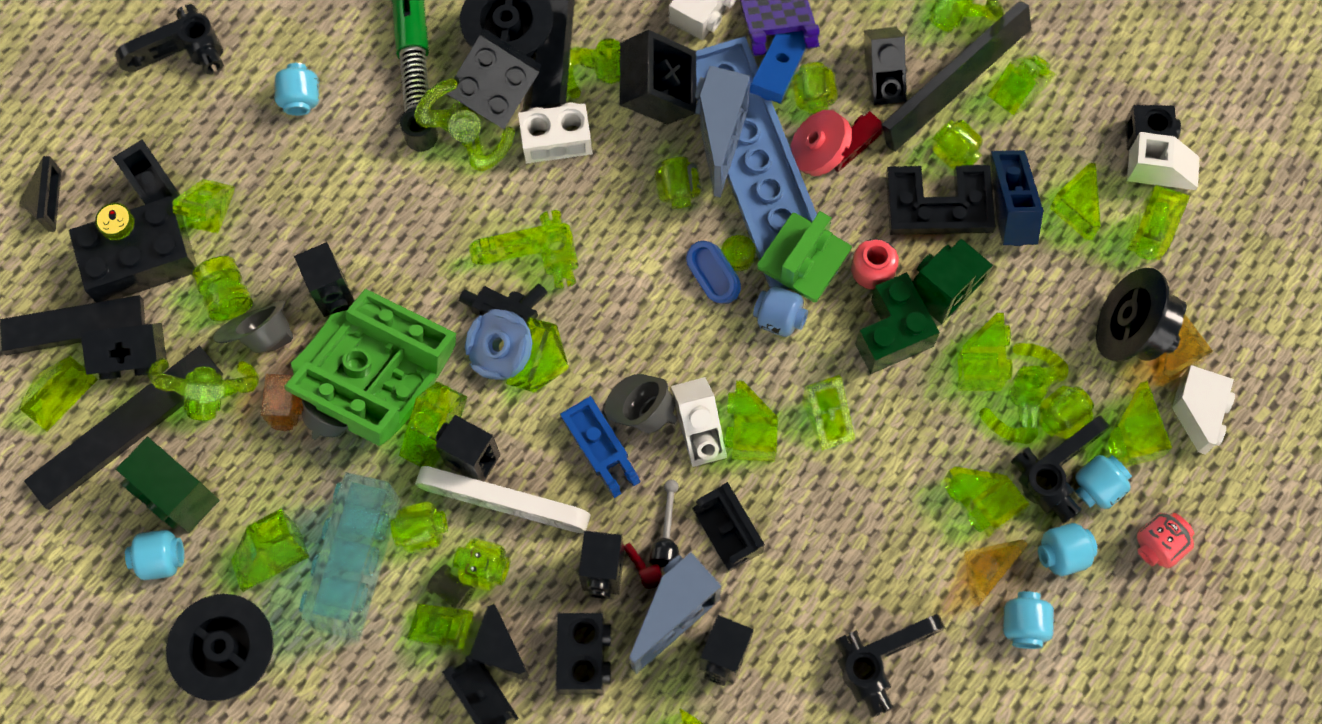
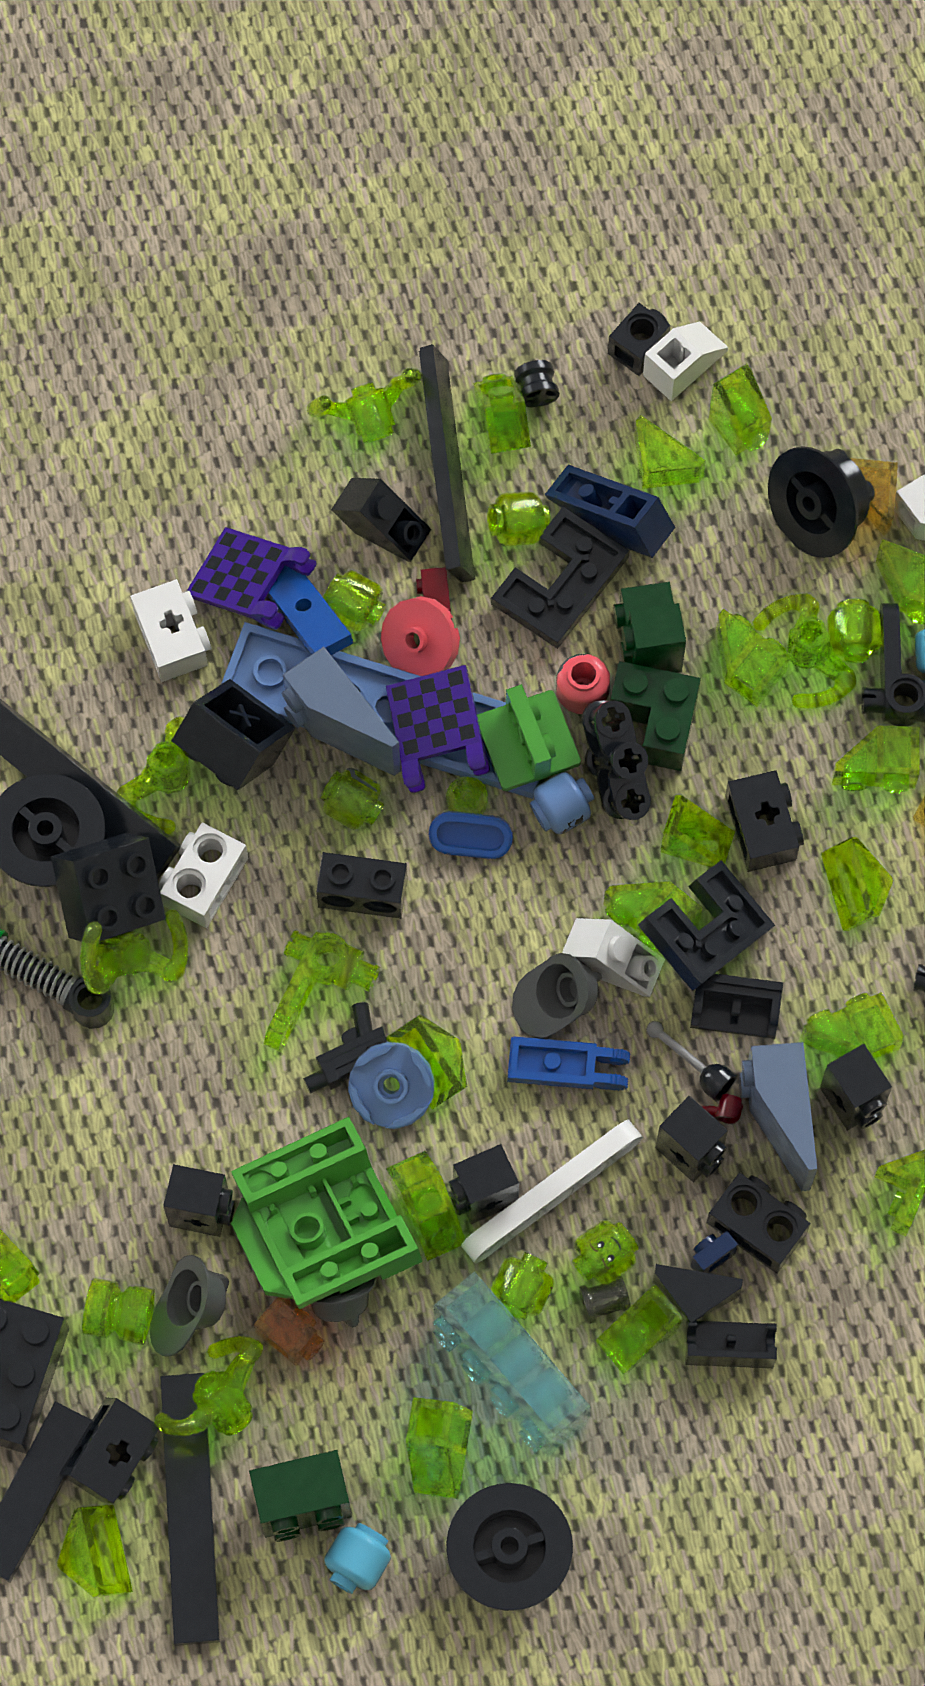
camera: 55 degrees left, 0 degrees up
(535, 638) = (713, 1252): none -> dark blue plate
(622, 229) = (362, 885): none -> black brick
(771, 191) = (436, 718): none -> dark purple flag
(775, 624) = (861, 1022): none -> clear neon green slope
(783, 485) = (703, 952): none -> black plate
(830, 336) = (616, 745): none -> black axle
(883, 431) = (763, 844): none -> black brick
(885, 546) = (856, 882): none -> clear neon green slope
(1062, 89) = (537, 383): none -> black wheel

